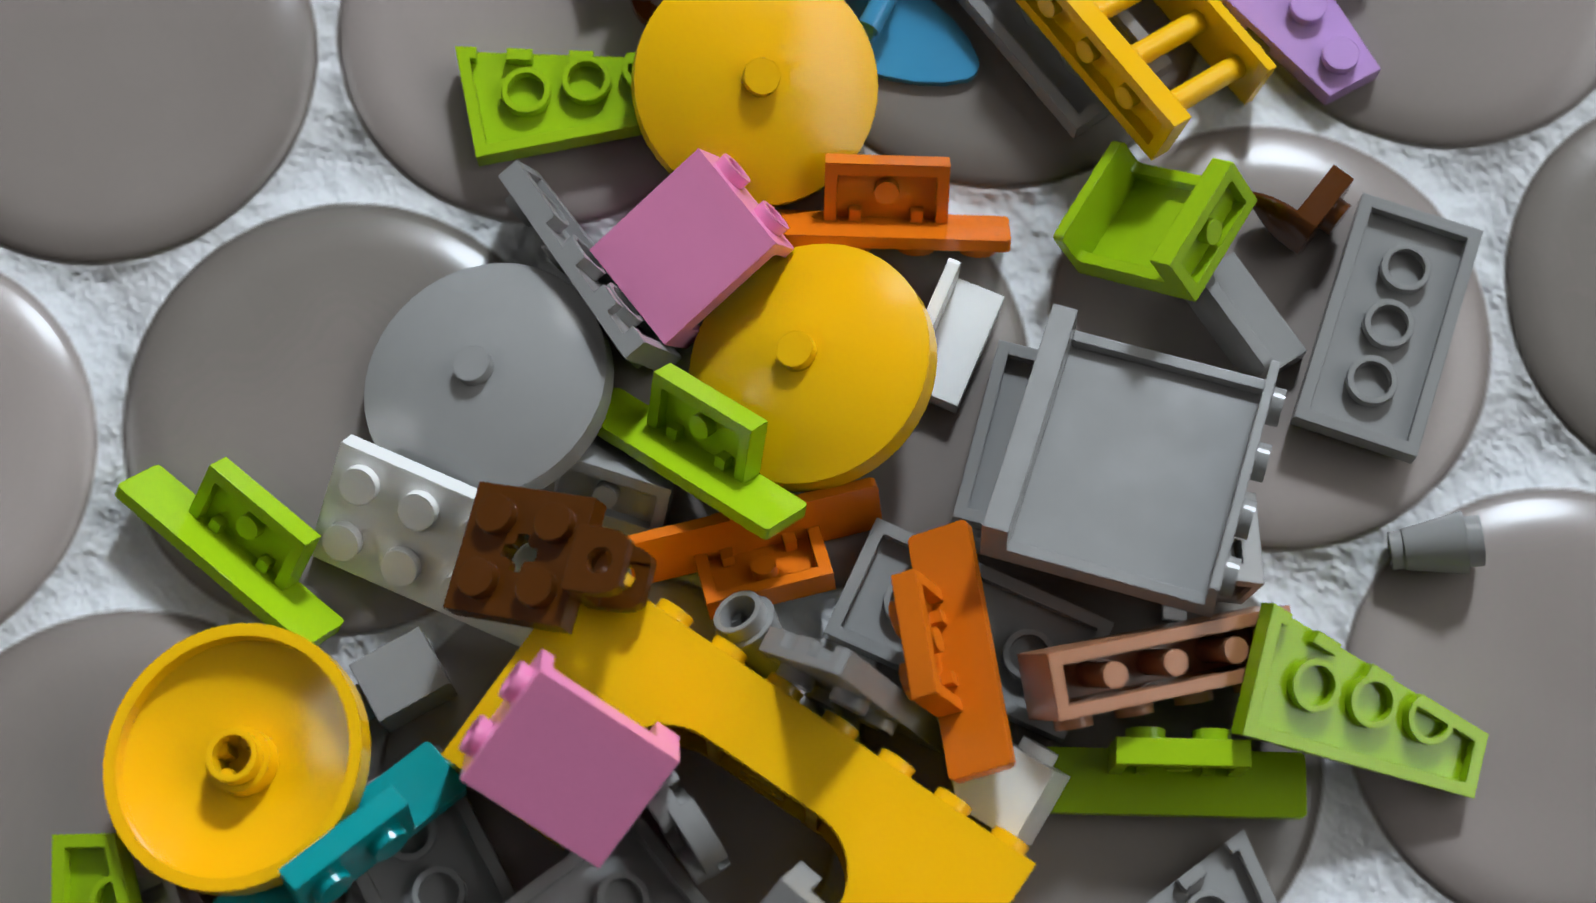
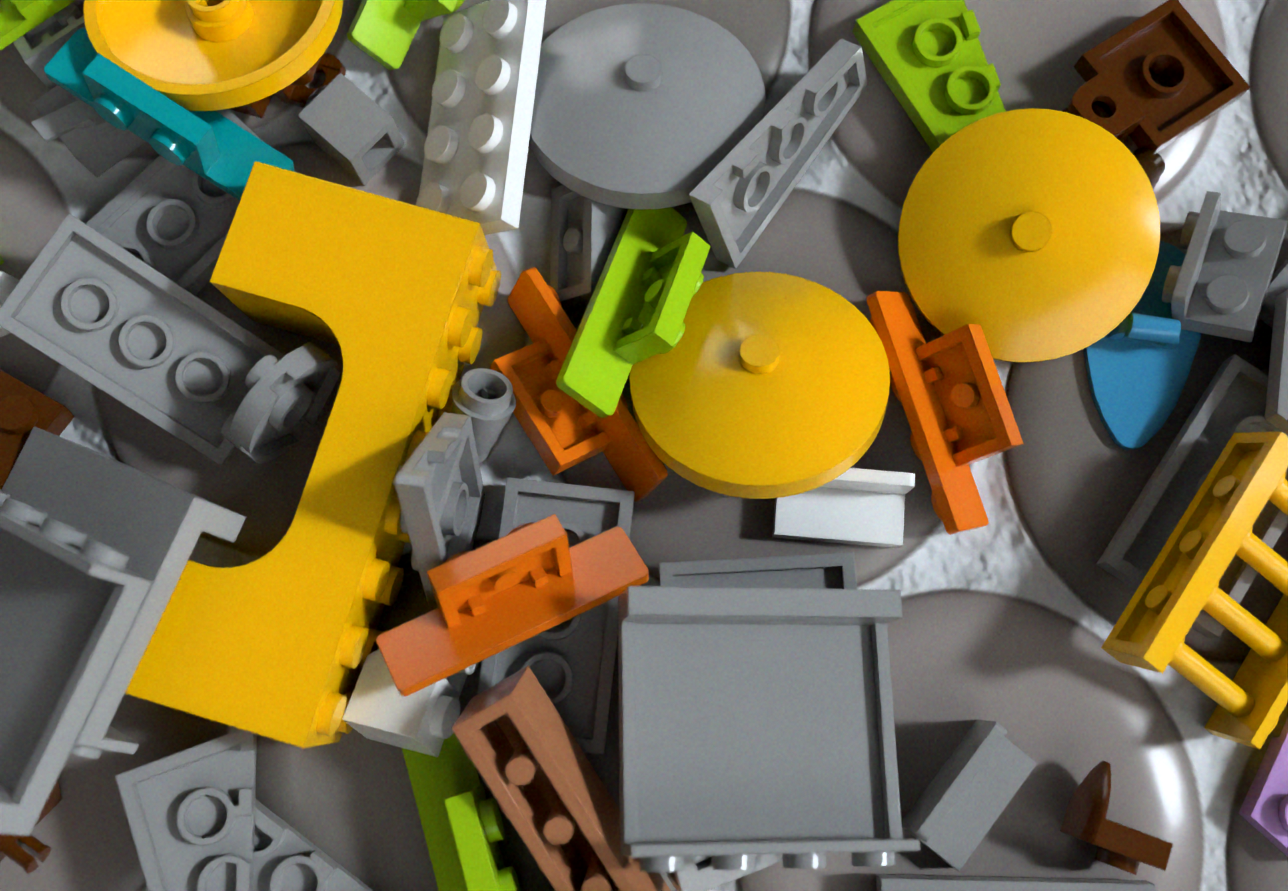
camera: 75 degrees right, 5 degrees up
(566, 760) = (262, 264): bright pink panel -> none
(572, 565) = (460, 209): reddish brown plate -> none
(691, 245) = (838, 229): bright pink panel -> none
(1154, 223) = (1034, 672): lime panel -> none

